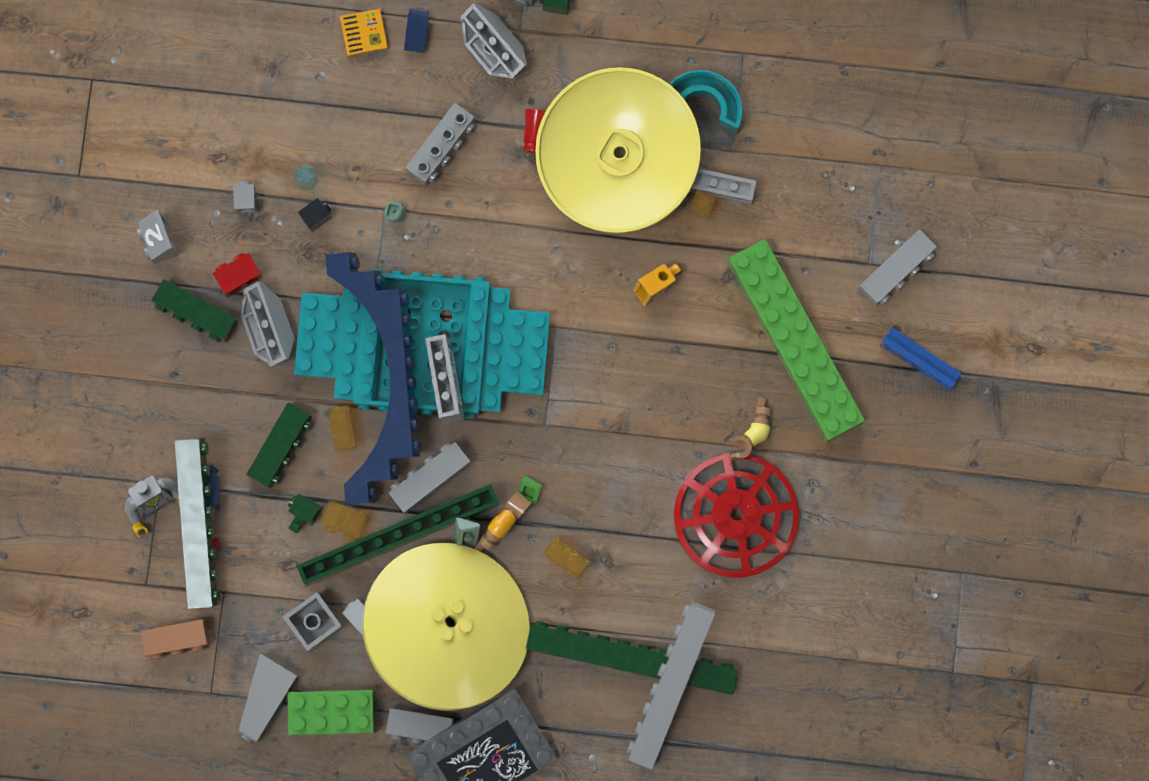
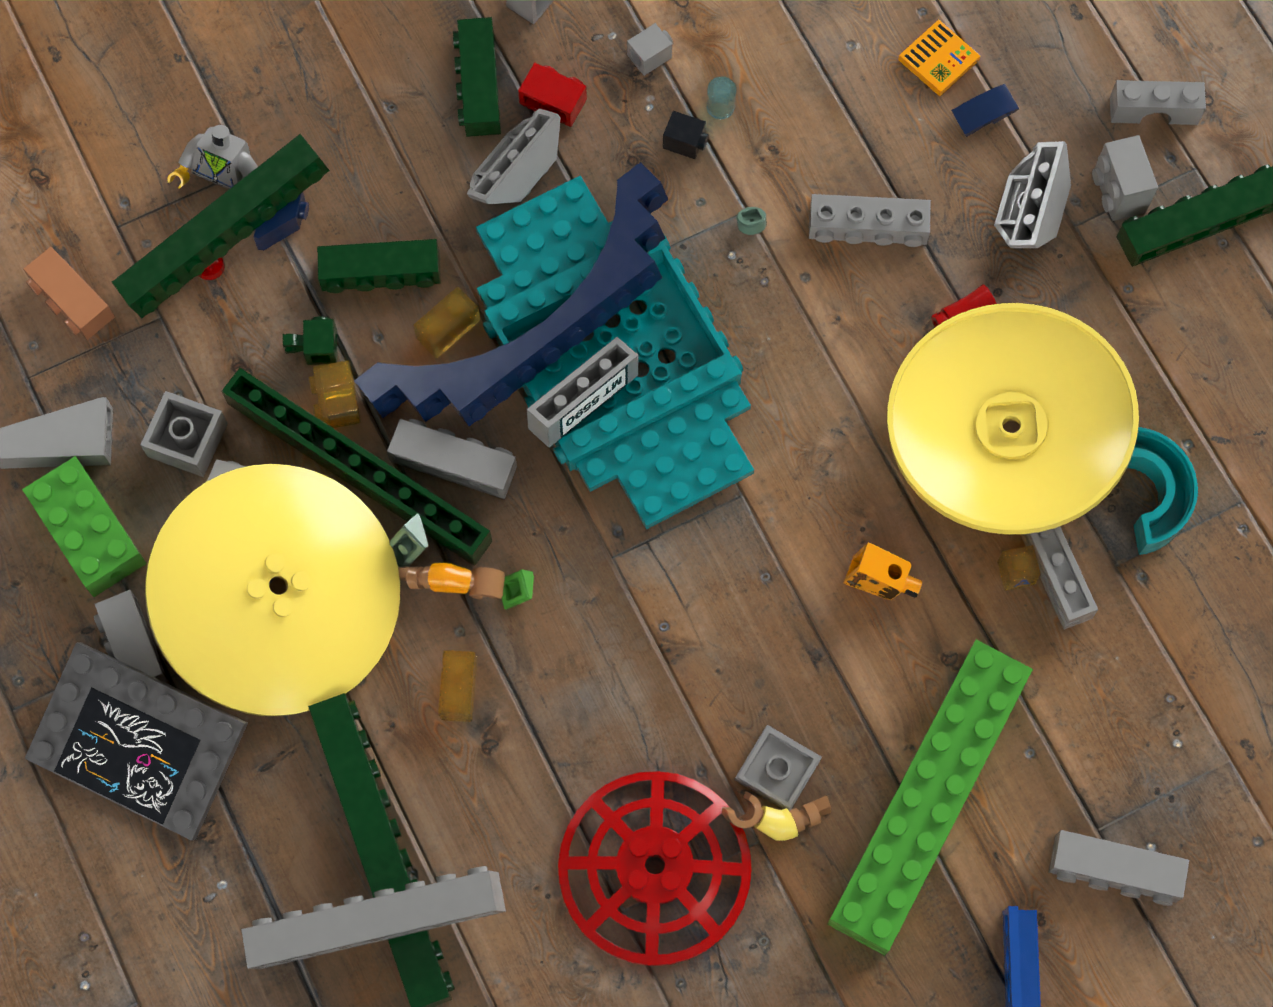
camera: 55 degrees right, 10 degrees down
(725, 412) = (778, 768): none -> light grey tile

